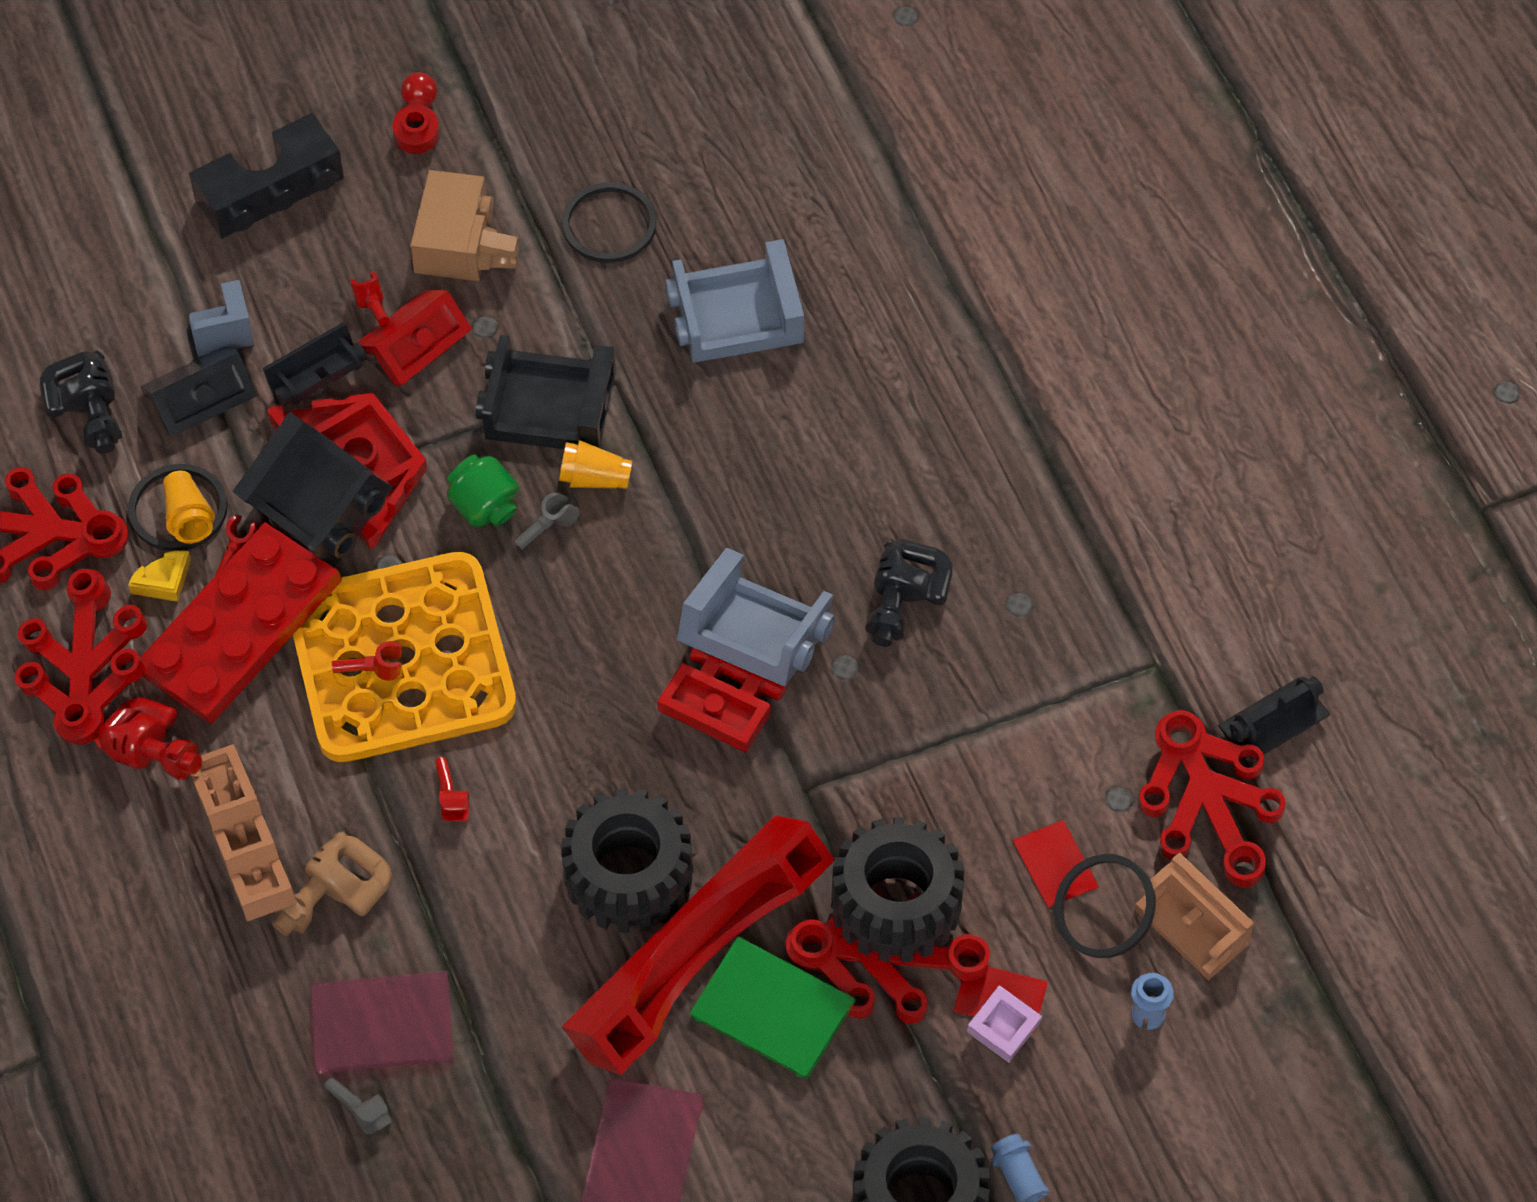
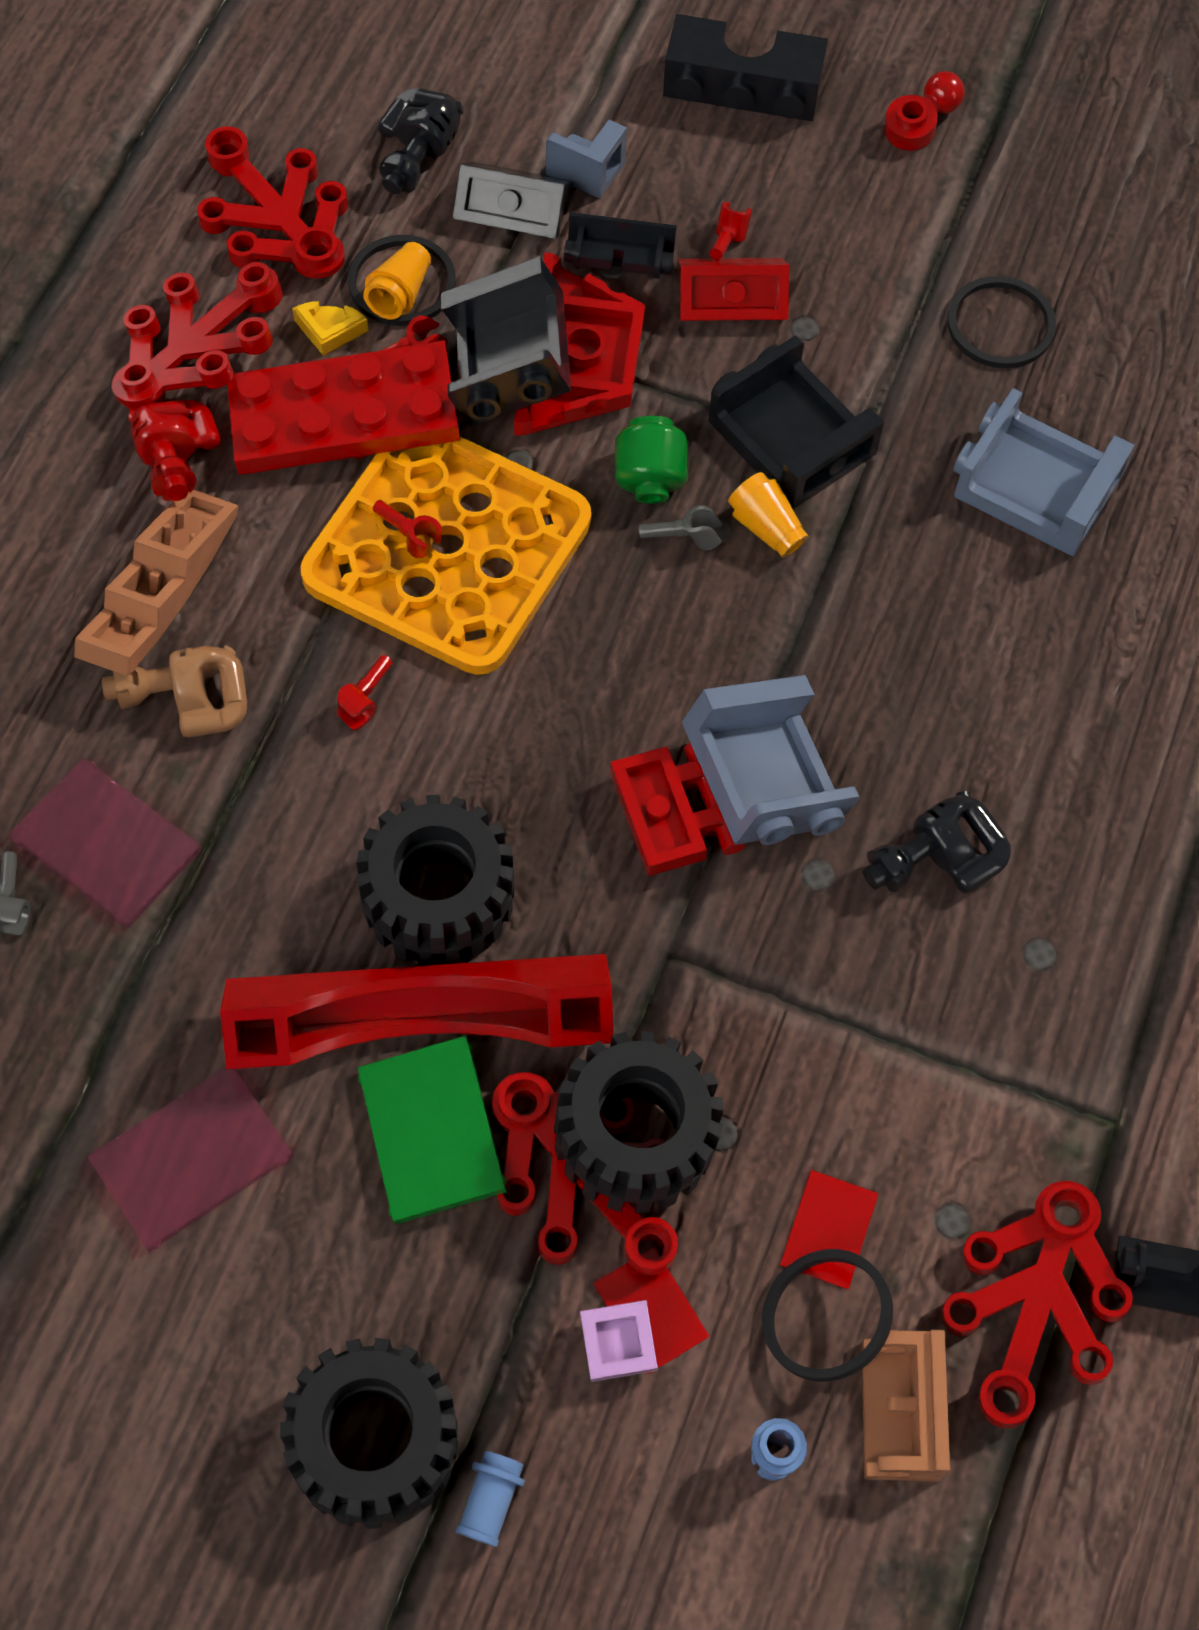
camera: 40 degrees right, 5 degrees up
(453, 232) = (853, 223): medium nougat hinge -> none

